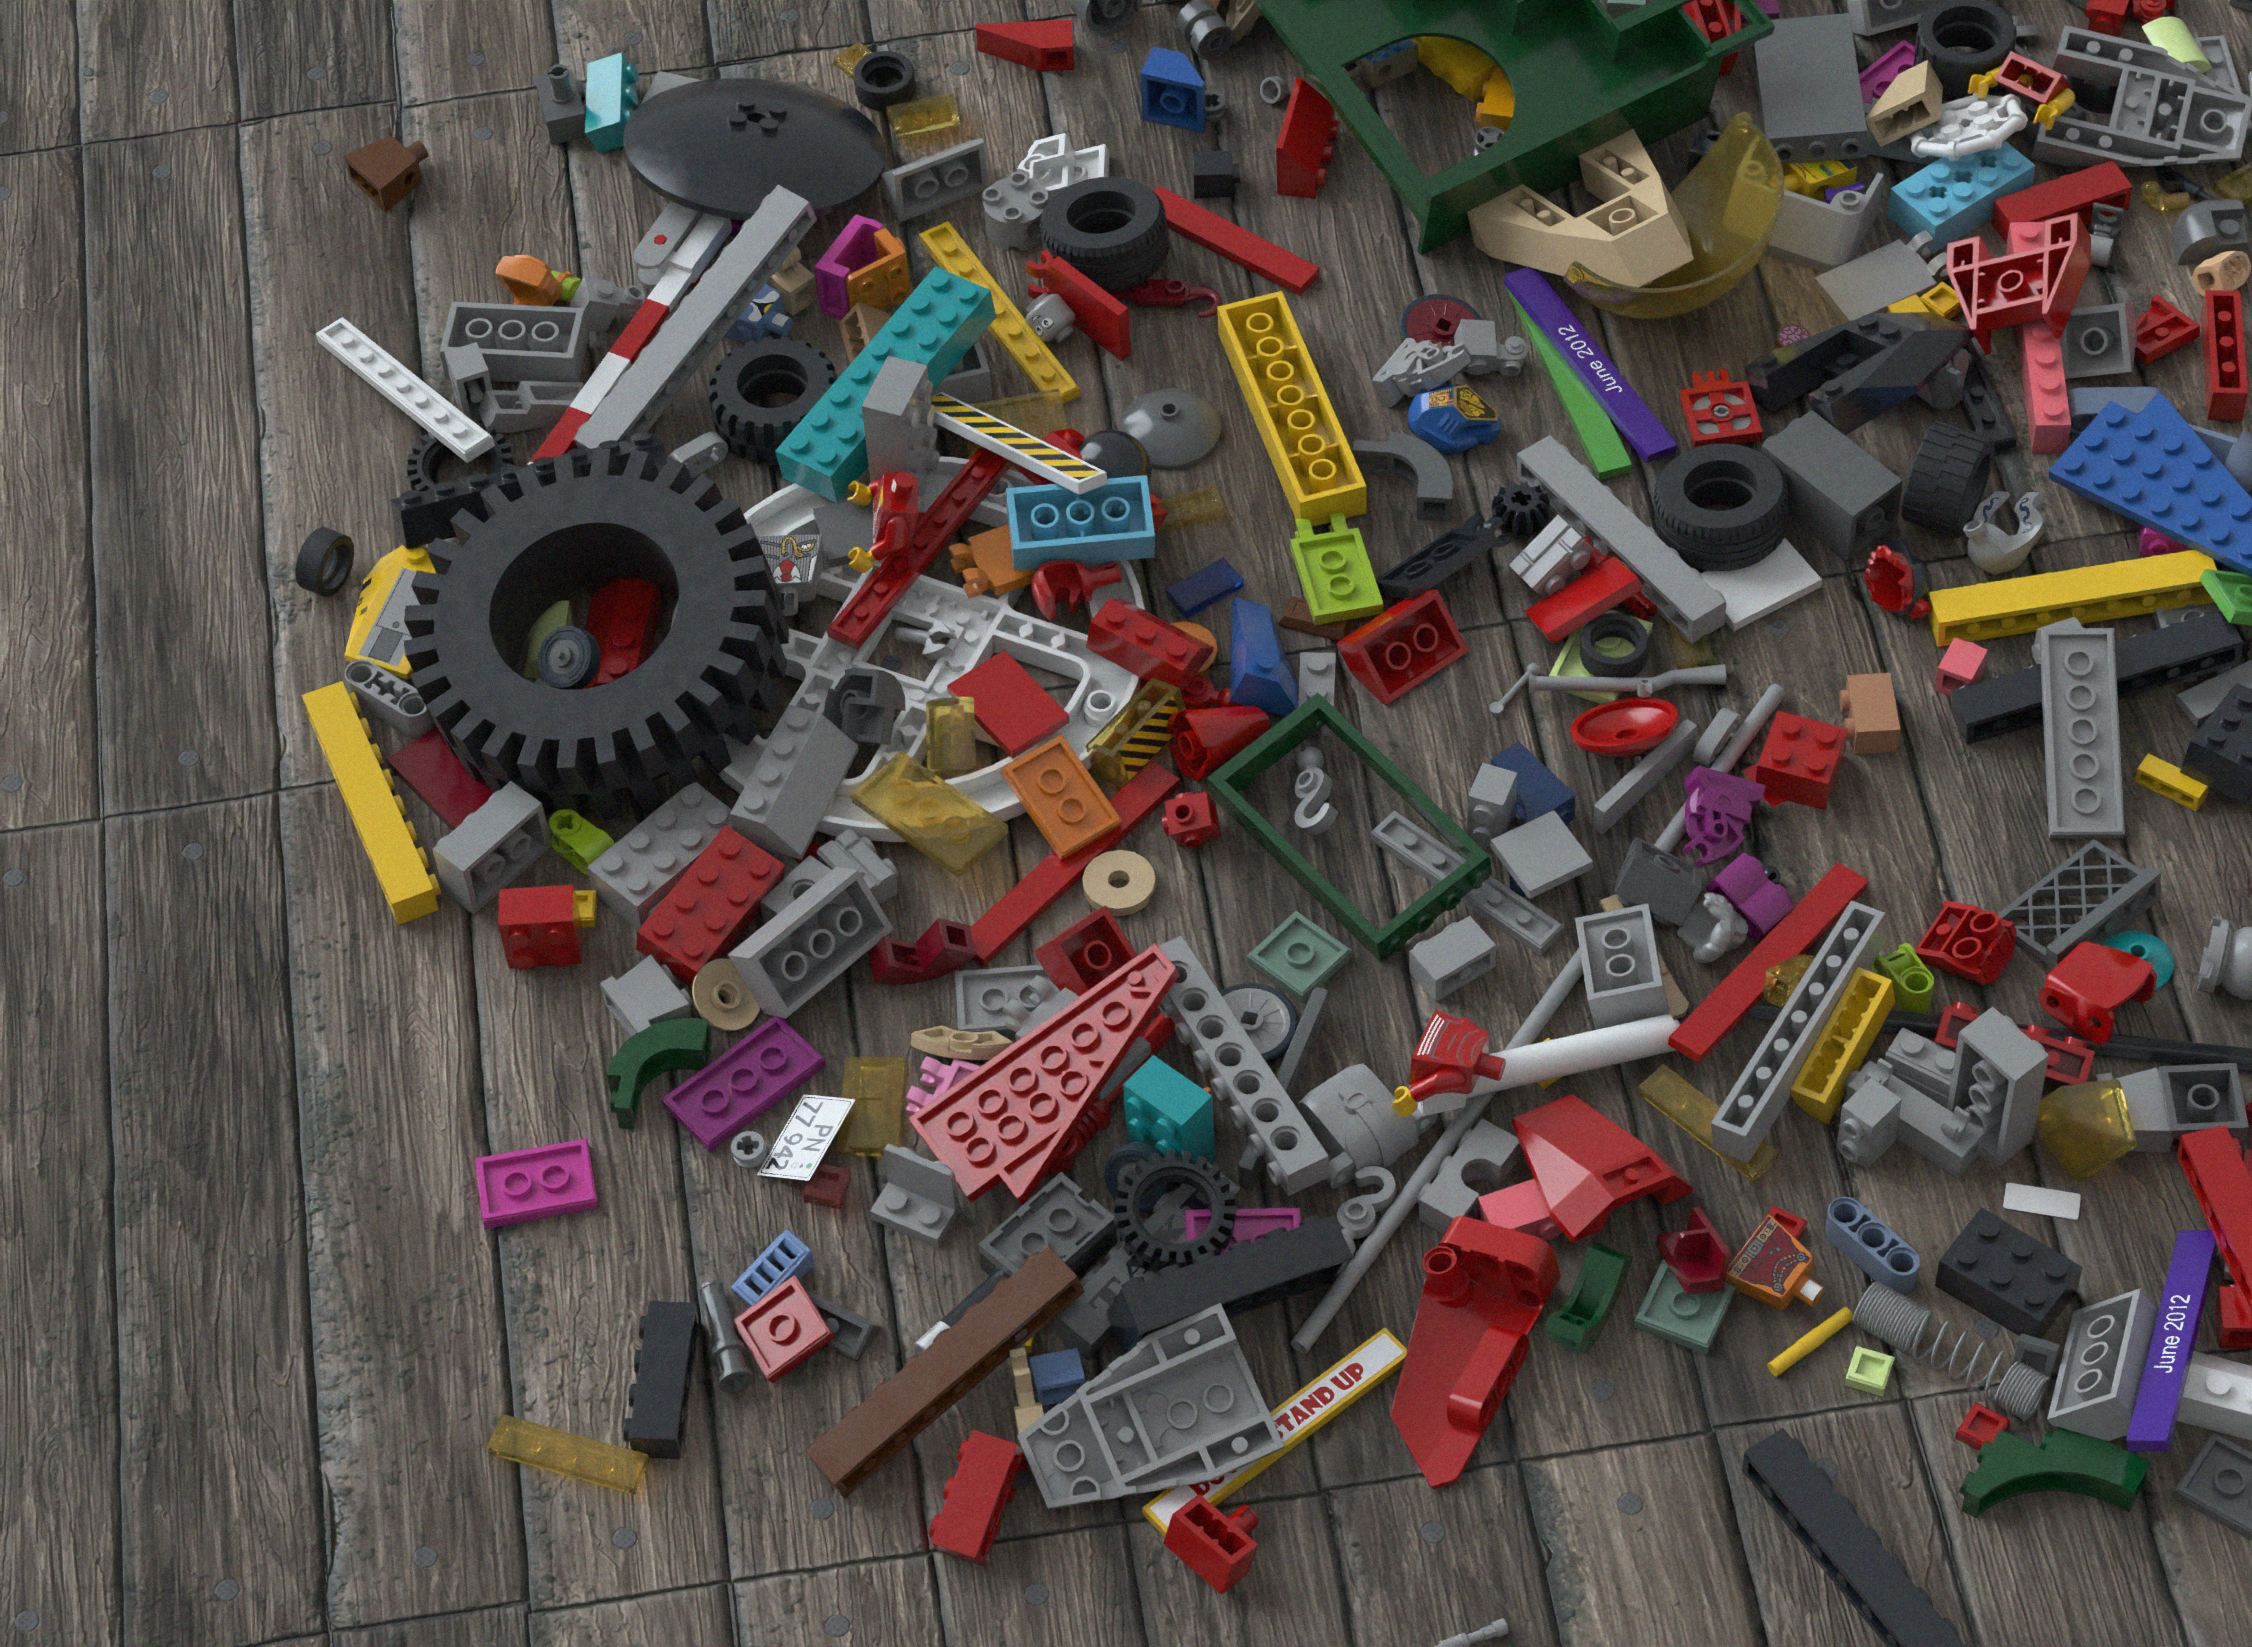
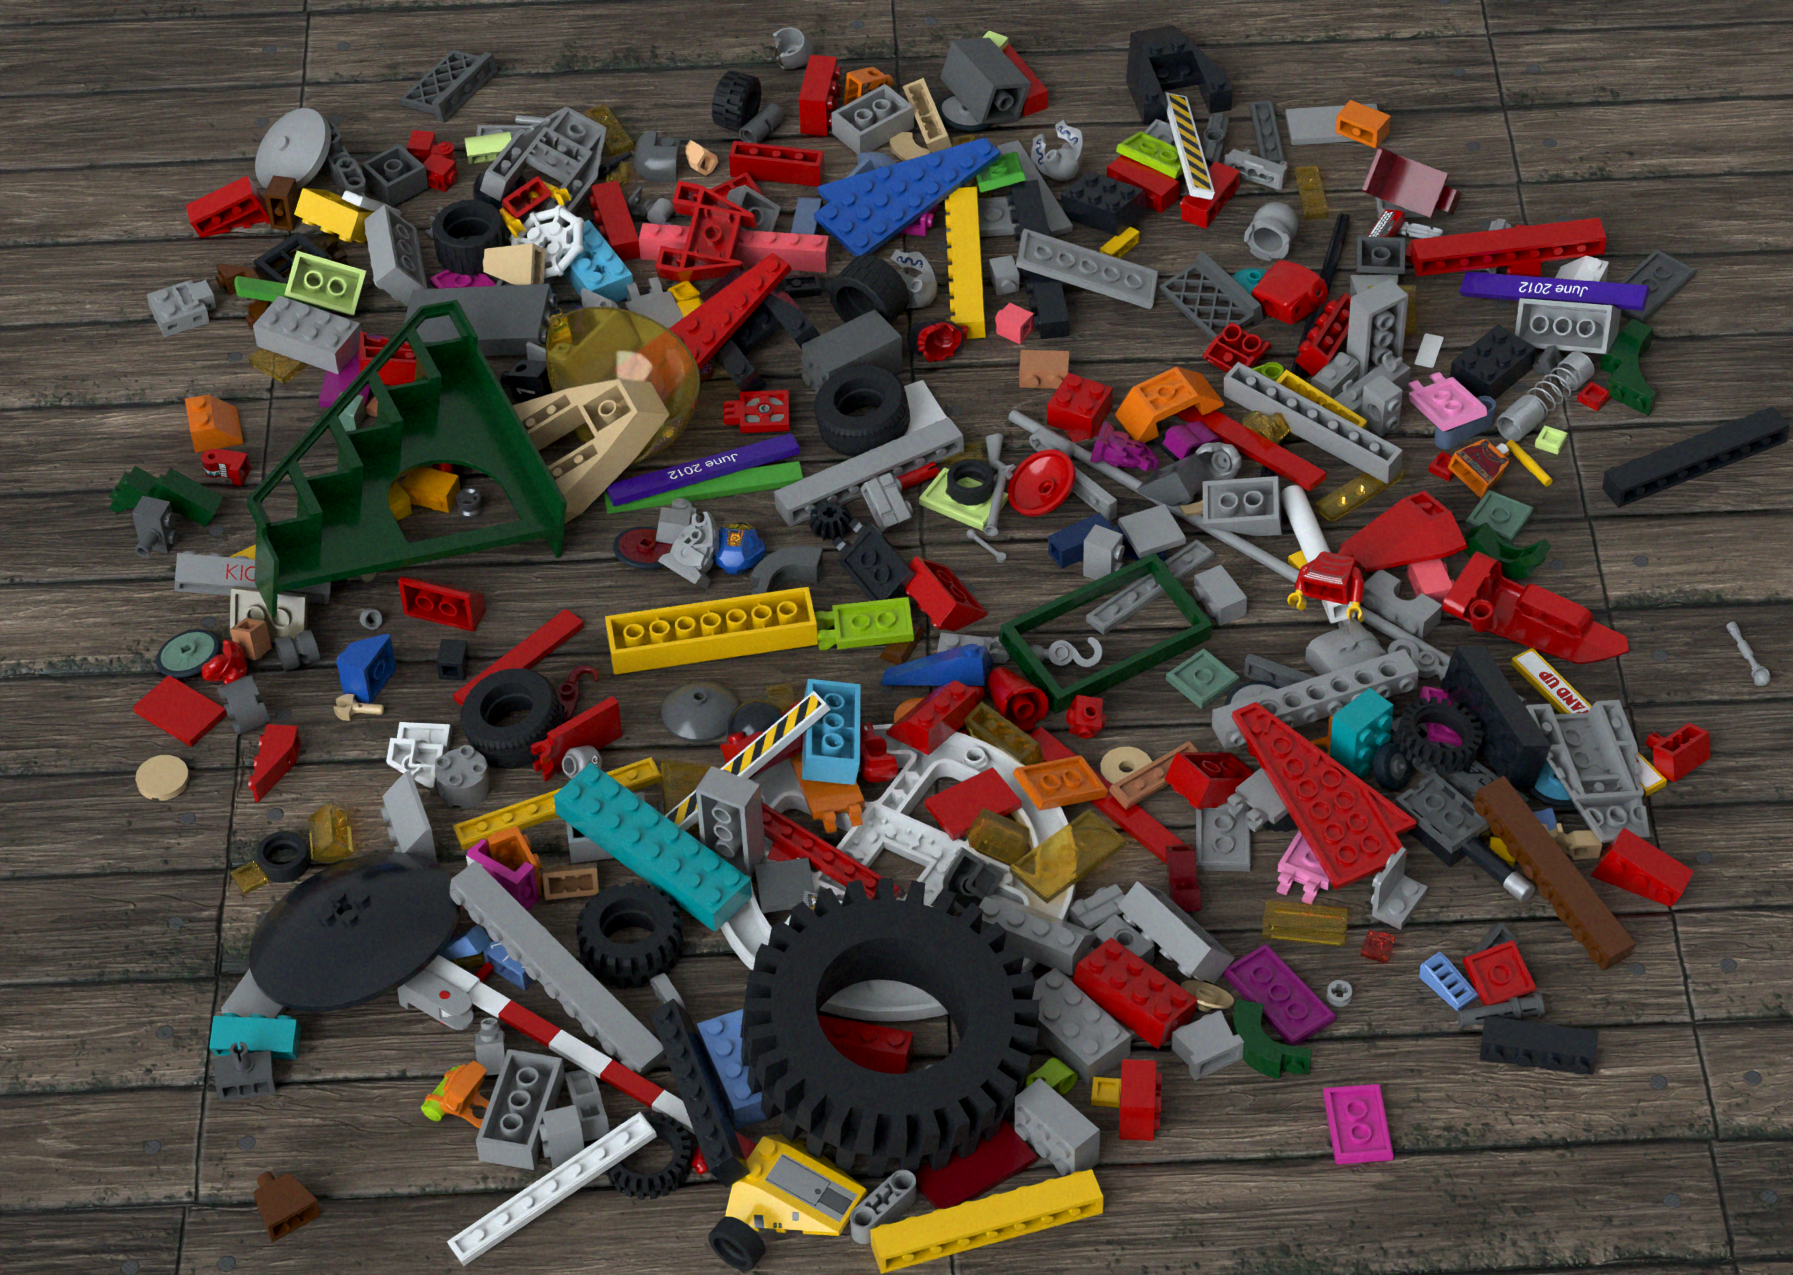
camera: 85 degrees left, 5 degrees down
(568, 1454) = (1593, 1109): clear yellow tile -> none
(569, 658) = (923, 1034): black wheel -> none
(806, 1137) = (1334, 956): white sticker -> none
(893, 517) = (795, 842): red torso -> none
(932, 650) = (891, 855): light grey bar -> none
(960, 1044) = (1265, 861): tan tile -> none
(1085, 895) = (1147, 779): none -> nougat tile
(1130, 105) = (348, 706): none -> tan bar
(1204, 587) = (870, 707): clear blue tile -> none
(1583, 599) = (929, 489): red tile -> none
(1696, 1255) = (1470, 496): dark red panel -> none
(1807, 302) = (721, 315): none -> red wing
(1827, 856) = (1163, 397): none -> orange slope
(1892, 1206) = (1446, 402): none -> bright pink tile

